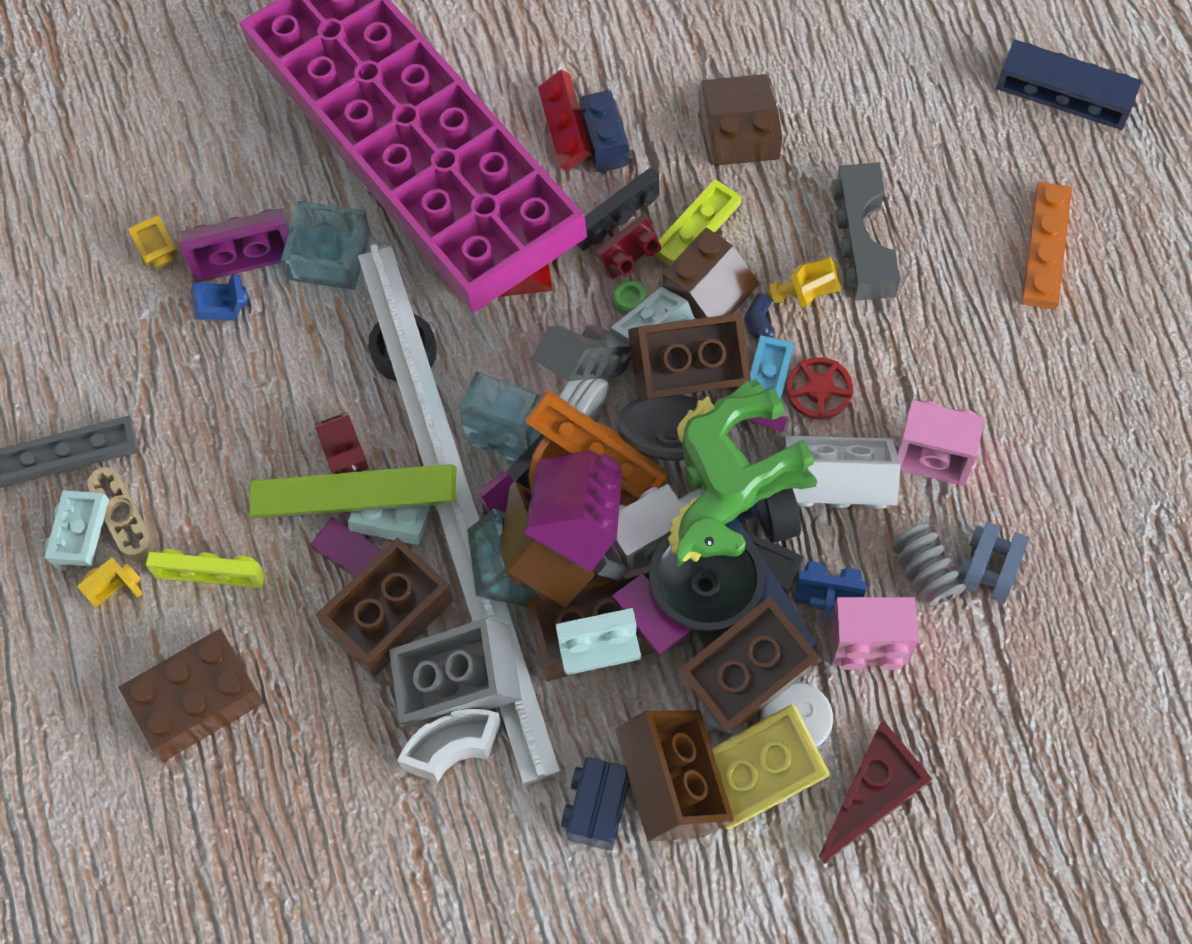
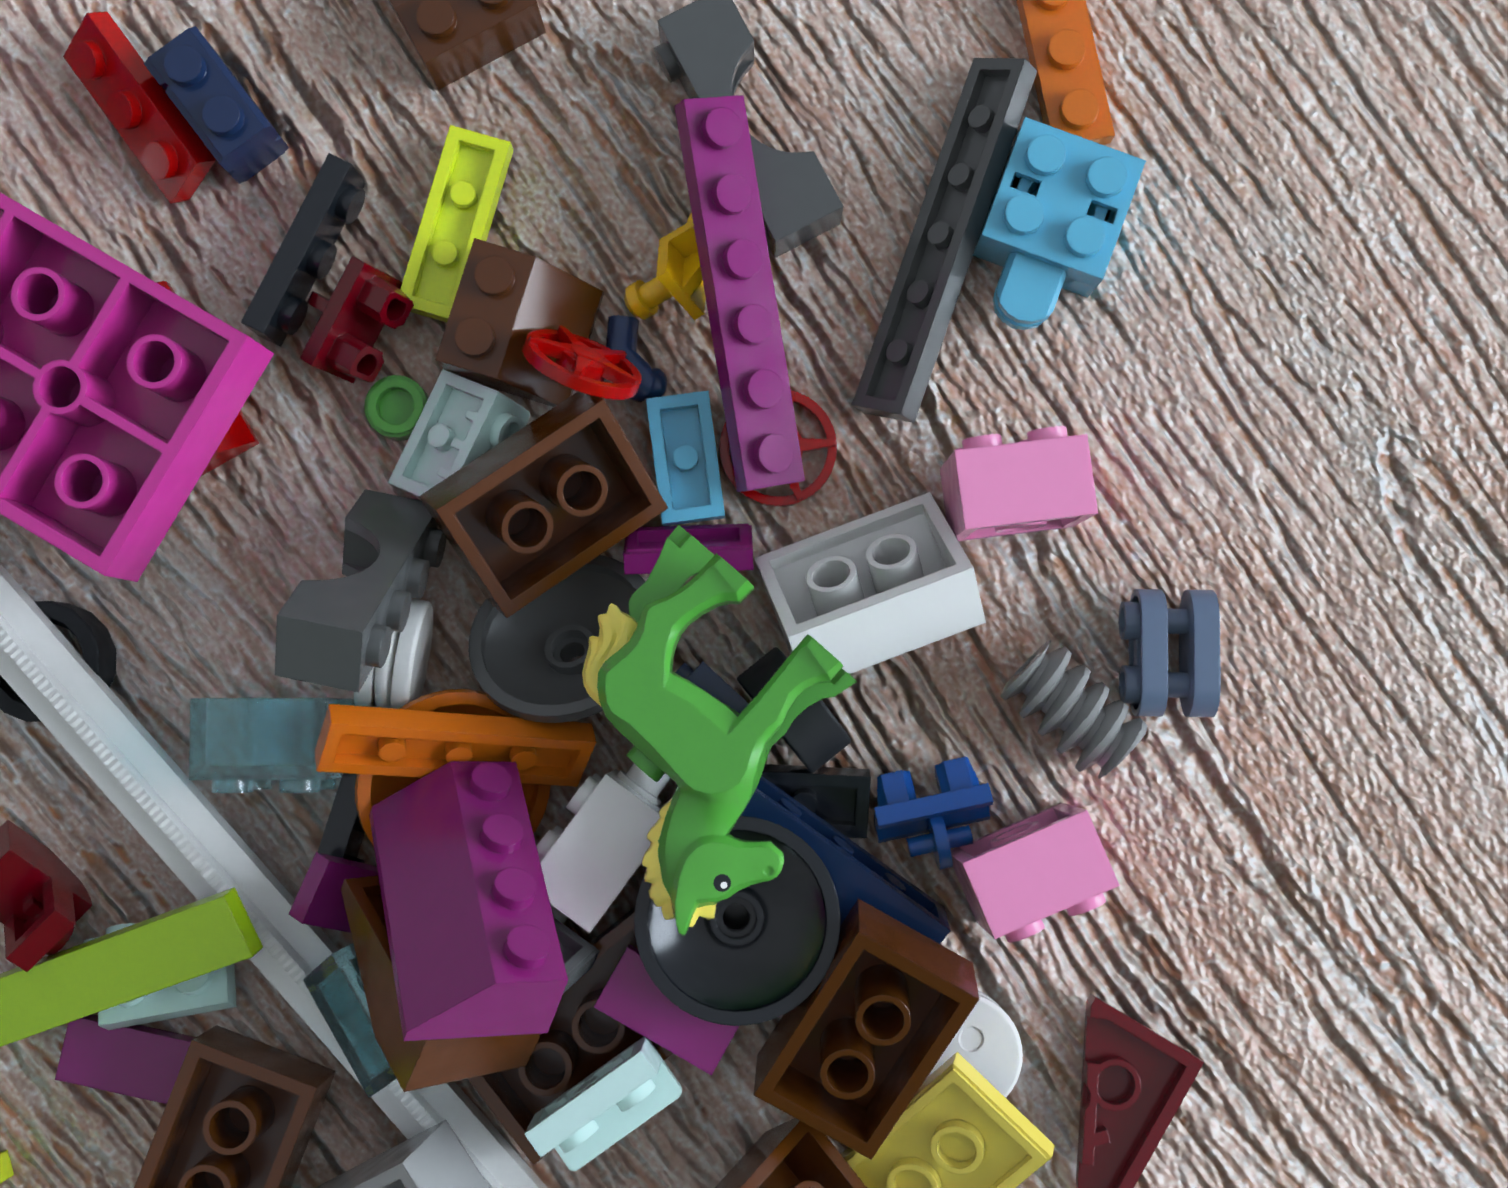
camera: 30 degrees left, 20 degrees up
(738, 301) = (582, 363): none -> red wheel
(829, 301) = (739, 291): none -> magenta plate
(947, 319) = (944, 238): none -> dark grey plate
(1009, 328) = (1057, 221): none -> medium azure brick

